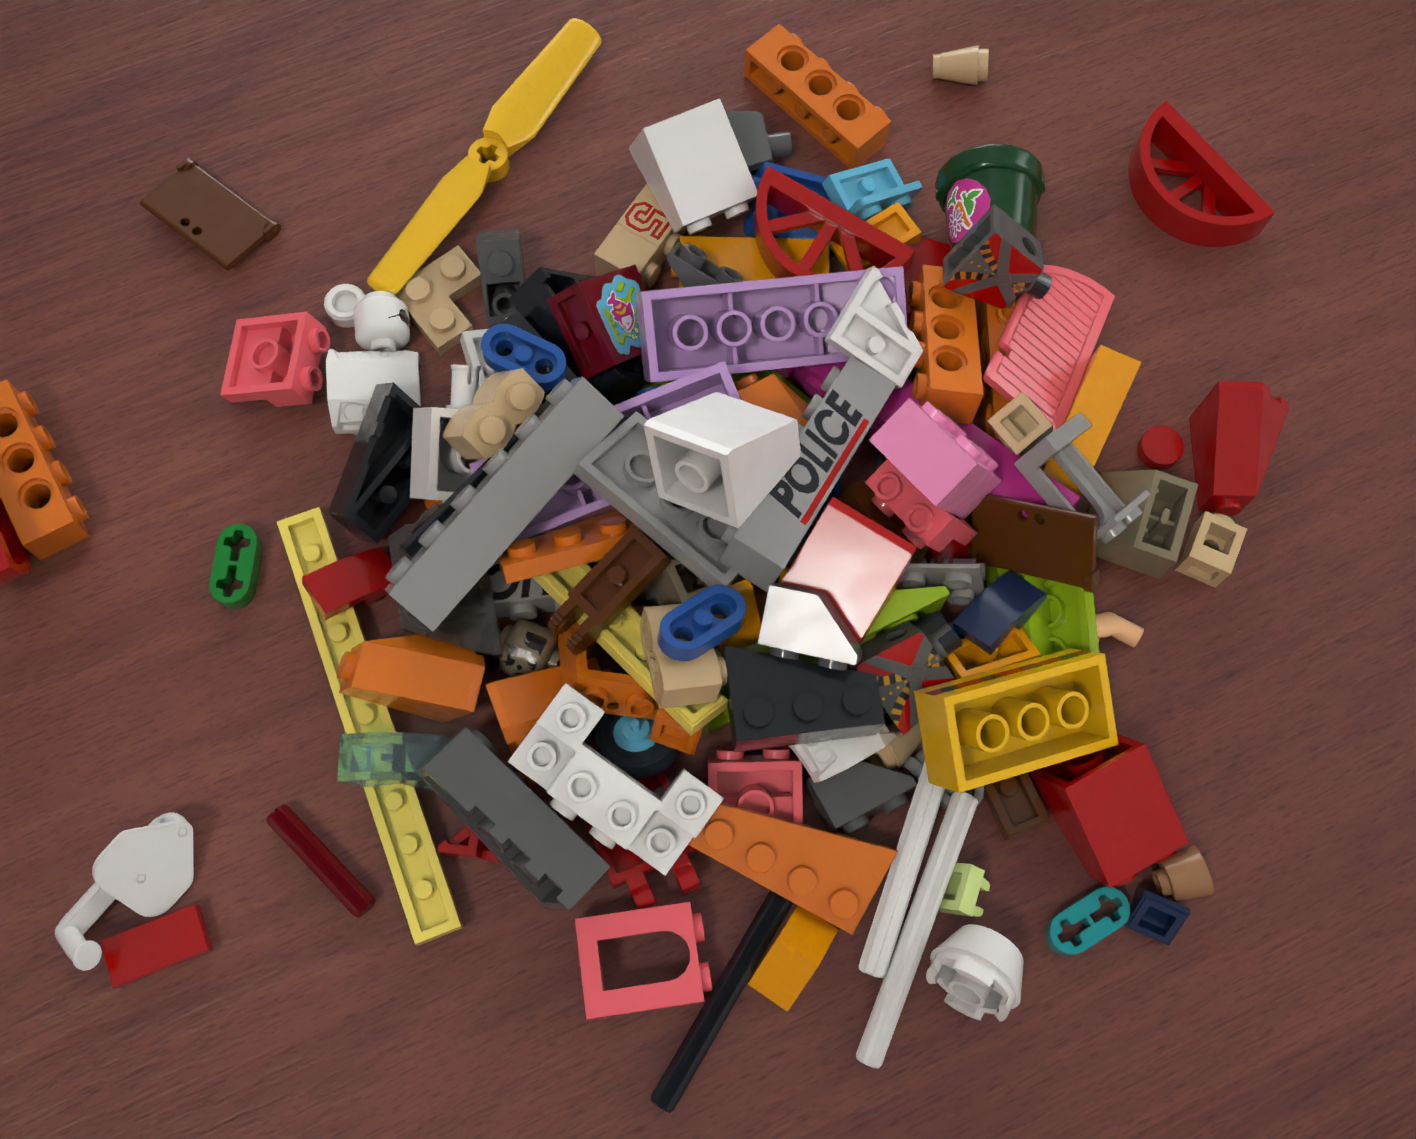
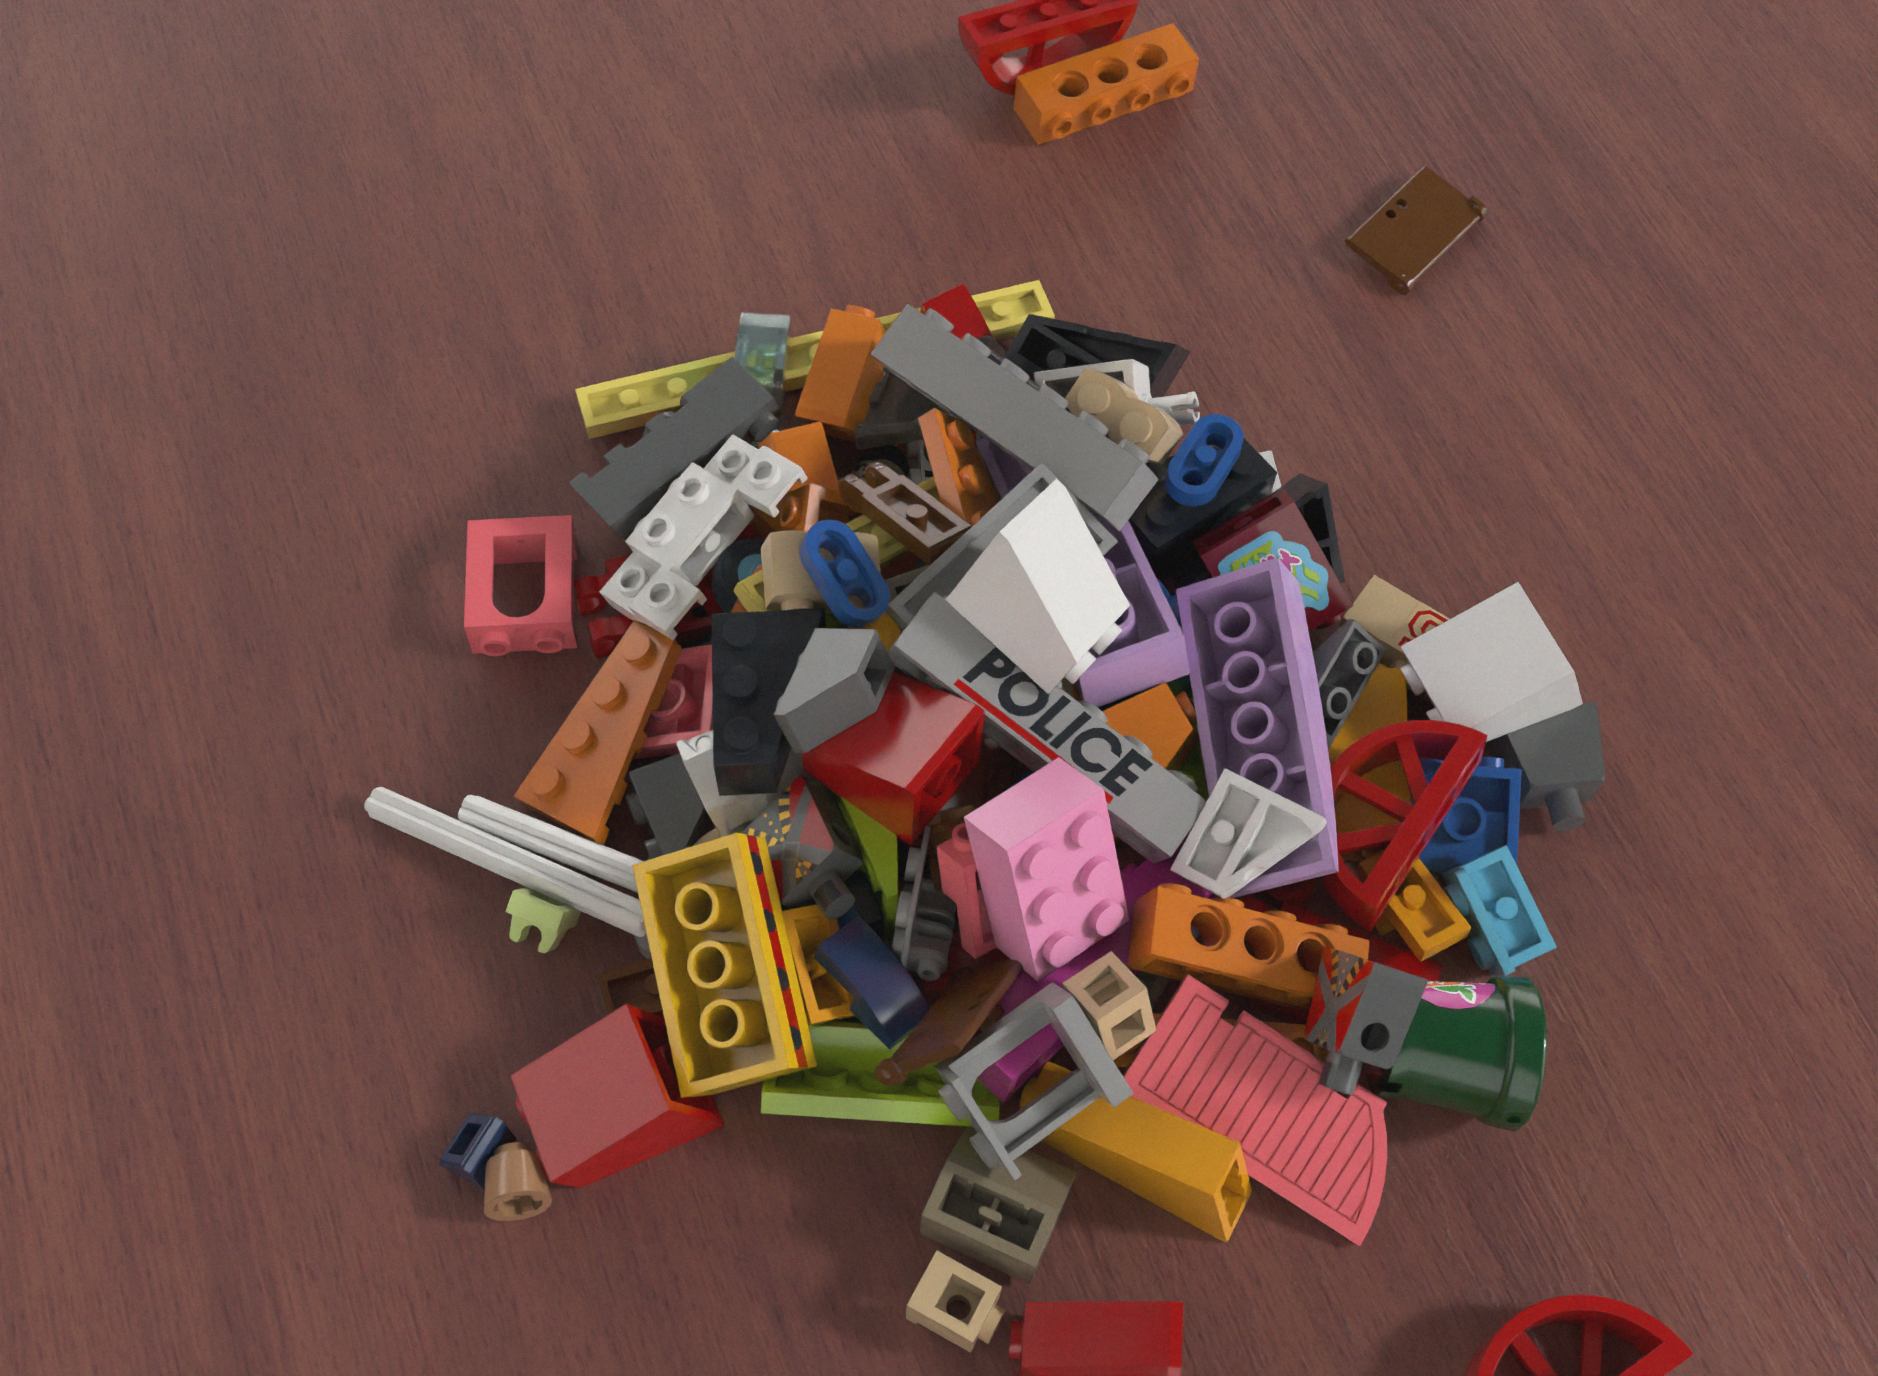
camera: 95 degrees right, 10 degrees down
(141, 869) = (684, 173): white piece -> none
(156, 946) = (614, 199): red tile -> none
(226, 564) = (994, 254): green beam -> none
(275, 359) = (1231, 281): coral plate -> none
(321, 860) = (675, 322): dark red axle -> none
(341, 302) = (1307, 351): white tile -> none
(354, 376) = (1214, 361): white slope -> none
(381, 322) = (1280, 376): white head -> none
(432, 297) = (1322, 427): tan plate -> none
(500, 271) = (1365, 487): dark grey slope -> none
(509, 126) = (1554, 504): yellow piece -> none
(720, 1002) = (466, 662): black axle -> none
(793, 958) = (501, 735): light orange slope -> none
(816, 97) = (1699, 809): orange brick -> none
(962, 65) = (1732, 1074): tan cone -> none
(978, 972) = (442, 910): white cone -> none
(1093, 930) = (470, 1069): teal beam -> none
(1121, 629) = (859, 1154): light nougat arm -> none
(1160, 447) = (1115, 1269): red tile -> none

